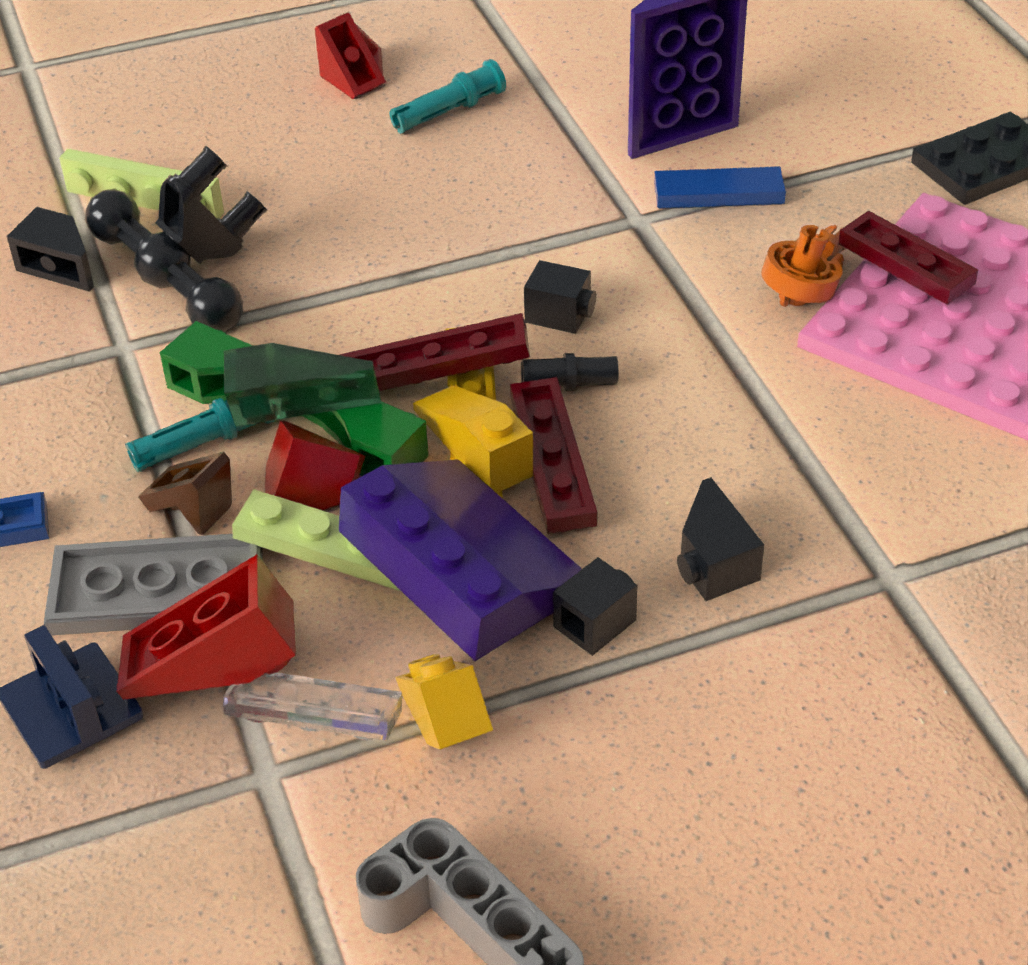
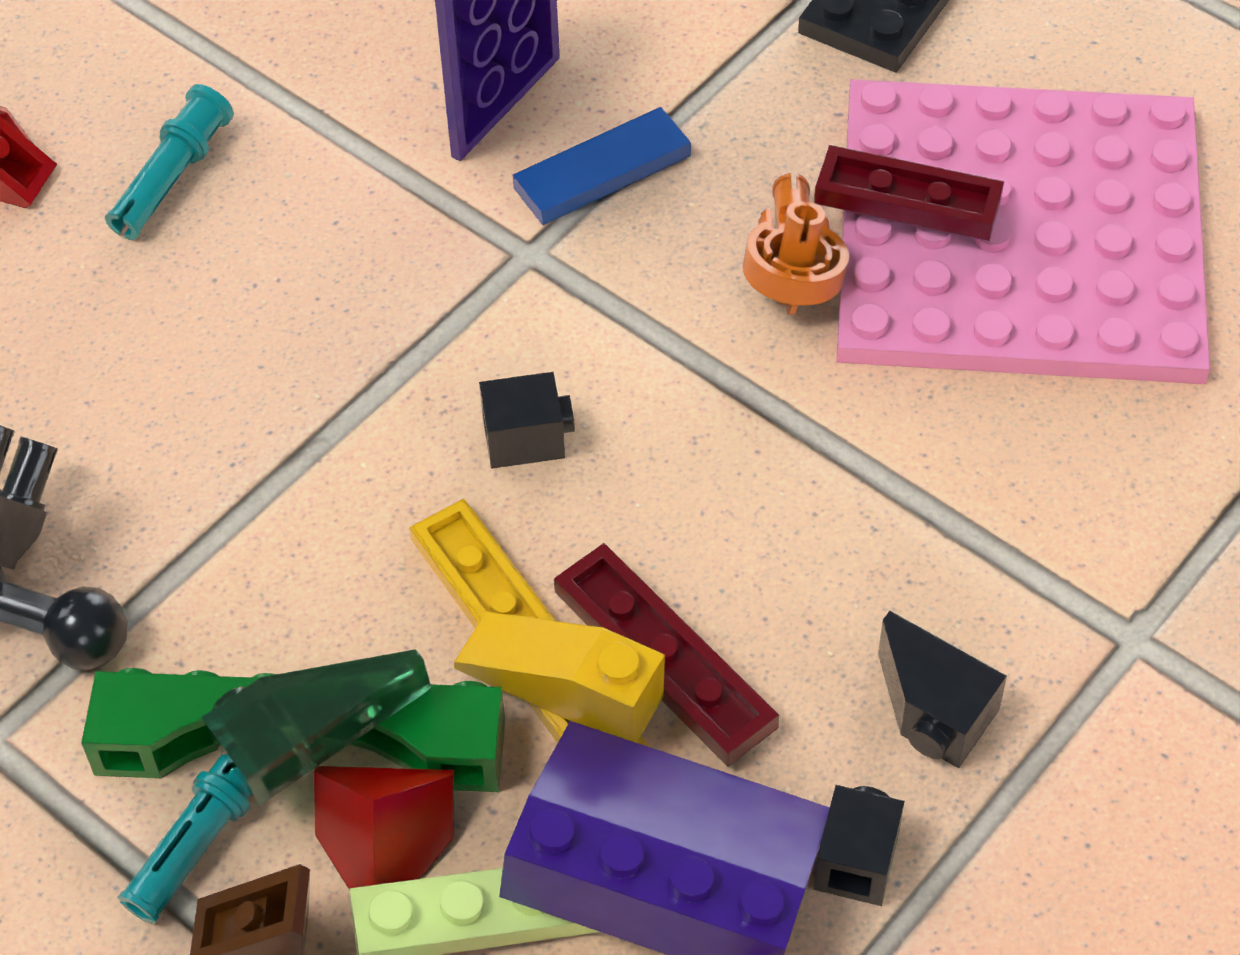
camera: 30 degrees left, 10 degrees up
(448, 352) = (440, 577): dark red plate -> none
(572, 370) = (606, 523): black pin -> none

